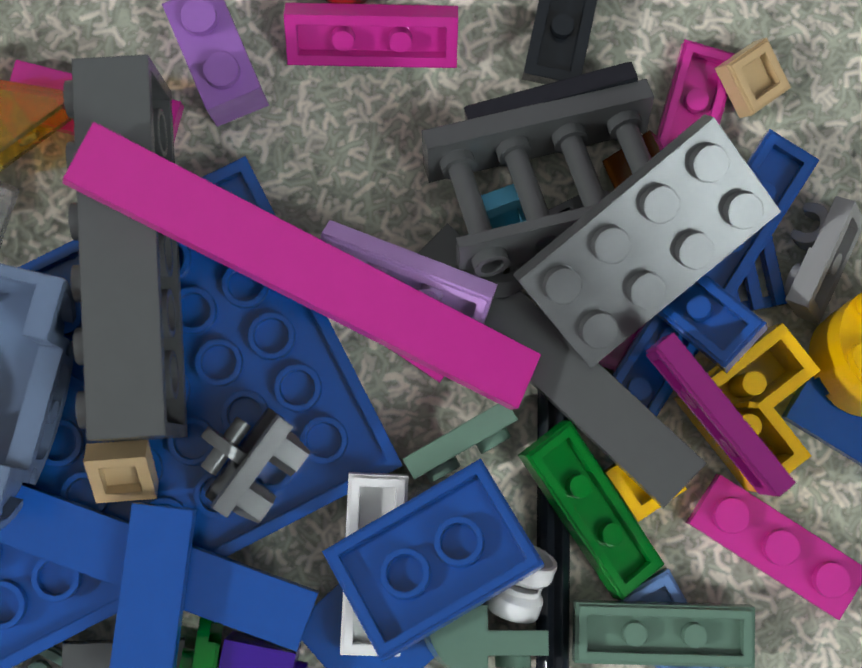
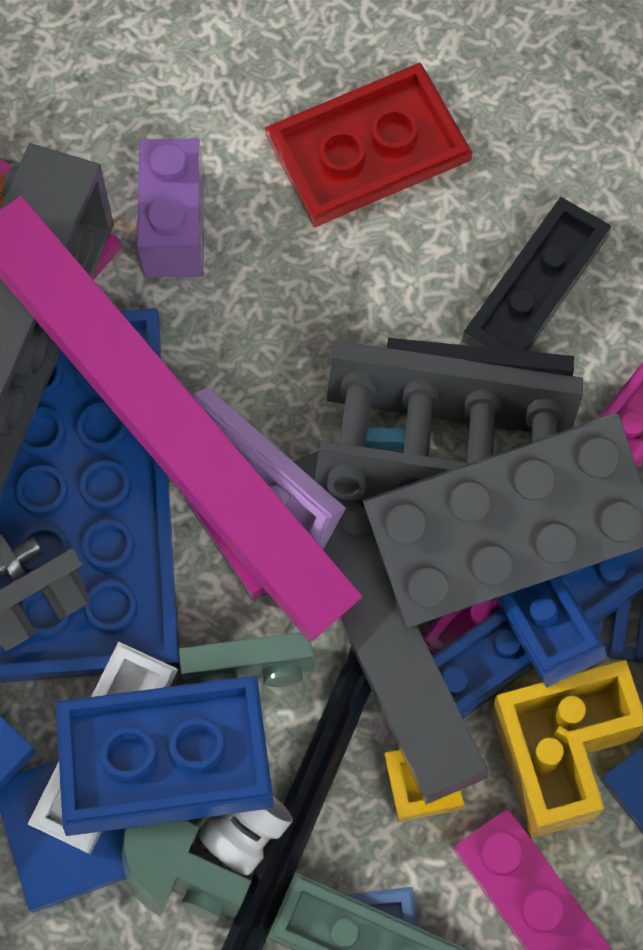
camera: 30 degrees right, 15 degrees down
(371, 35) = (329, 245): dark pink plate -> none
(591, 509) = (354, 787): green tile -> none
(719, 416) = (515, 718): magenta tile -> none

